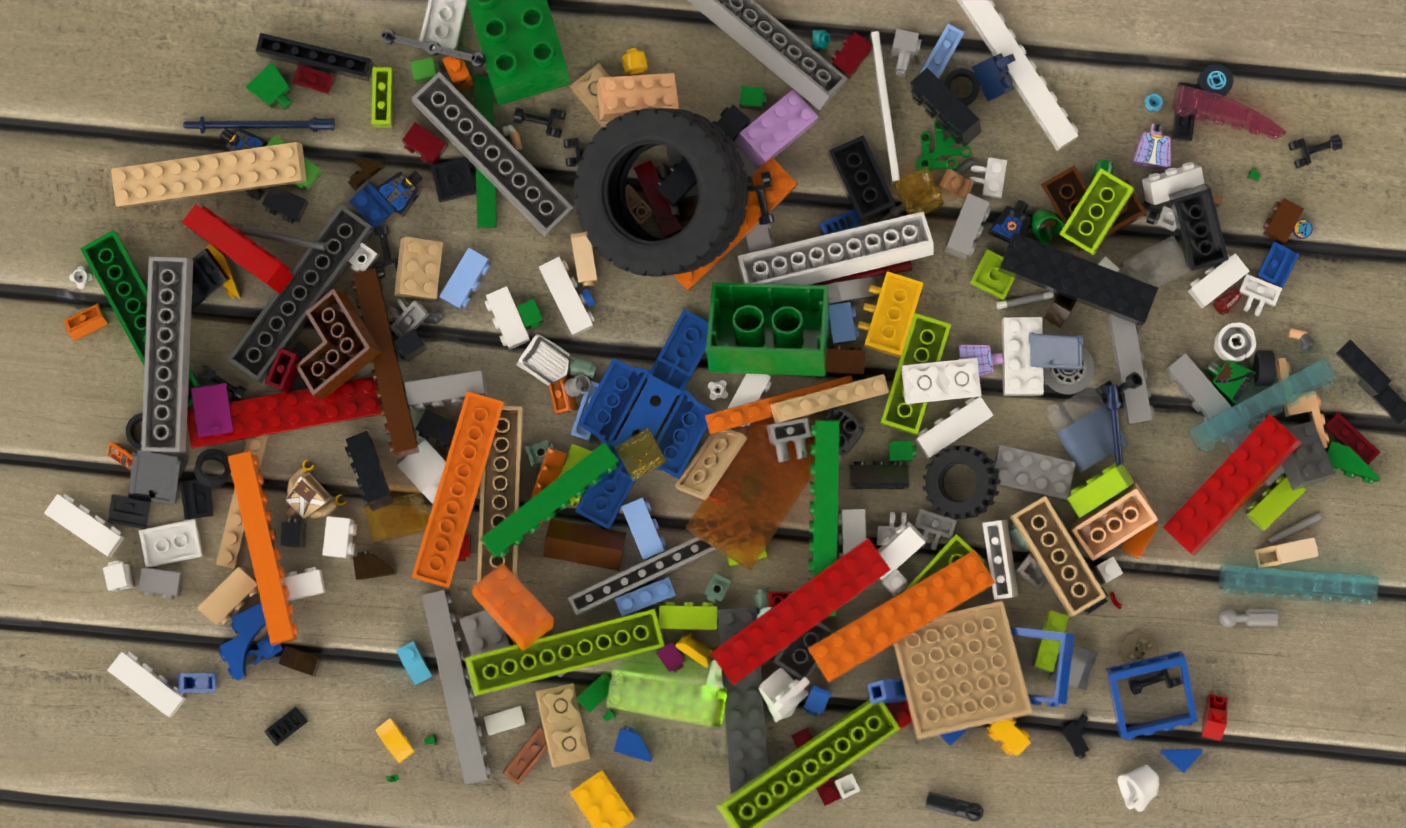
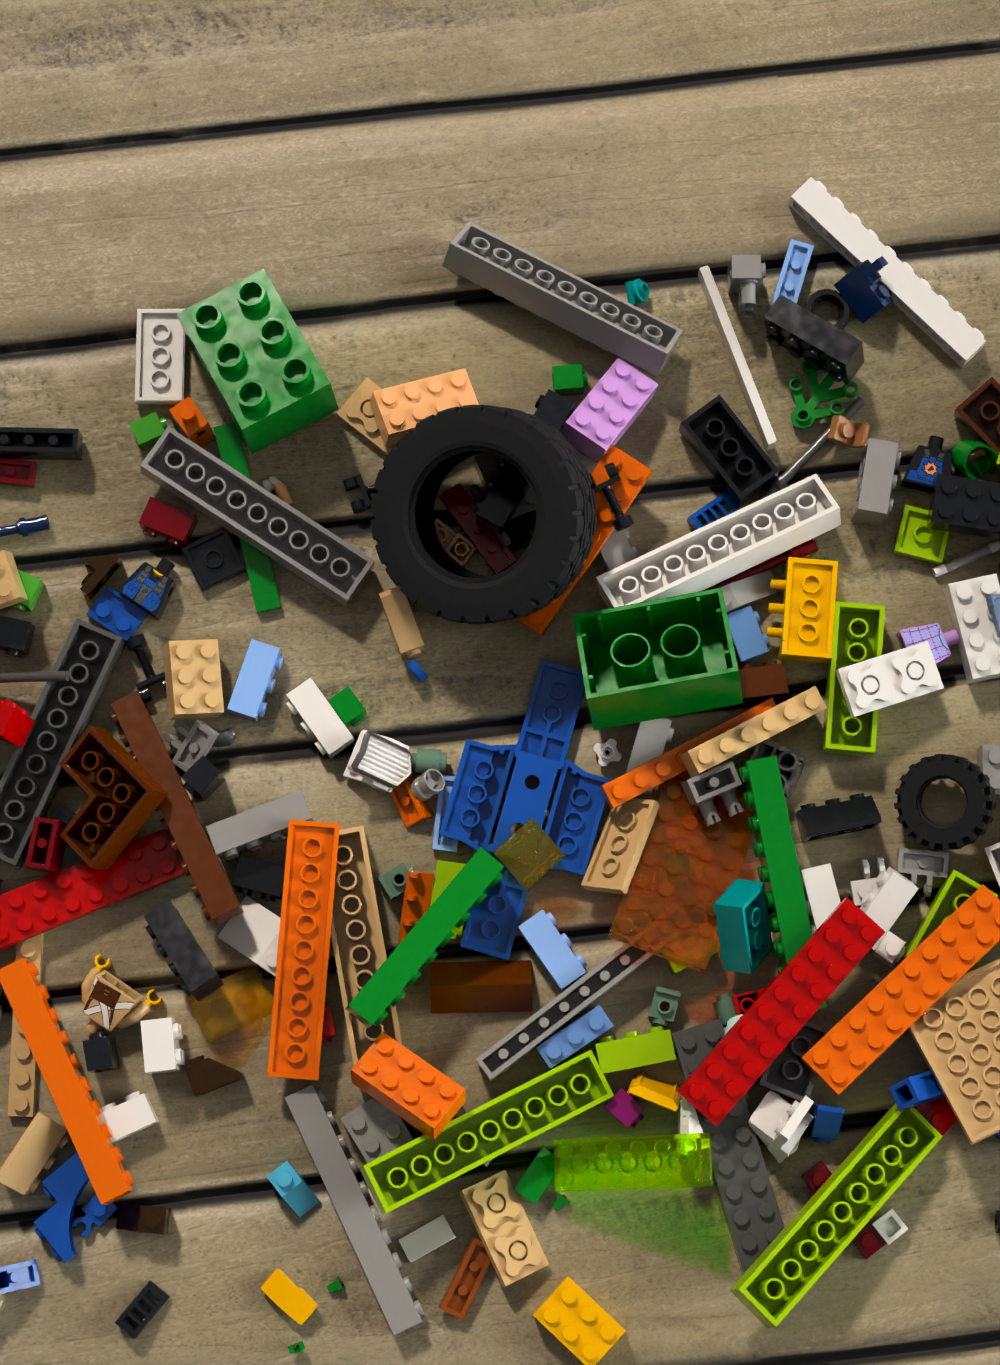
camera: 15 degrees left, 5 degrees down
(370, 258) = (129, 680): white brick -> none
(382, 97) = (103, 475): lime brick -> none
(477, 59) = (97, 399): piece -> none
(520, 116) = (281, 462): black bar -> none
(566, 297) = (389, 675): white brick -> none
(631, 744) = (599, 1233): blue slope -> none
(634, 62) = (411, 366): yellow head -> none
(788, 542) = (743, 926): none -> teal brick
(851, 55) = (681, 301): dark red brick -> none
(901, 451) = (858, 780): green brick -> none
(919, 192) = (805, 451): clear yellow slope -> none
(953, 427) = (917, 736): white brick -> none
(993, 179) = (892, 415): white hinge -> none

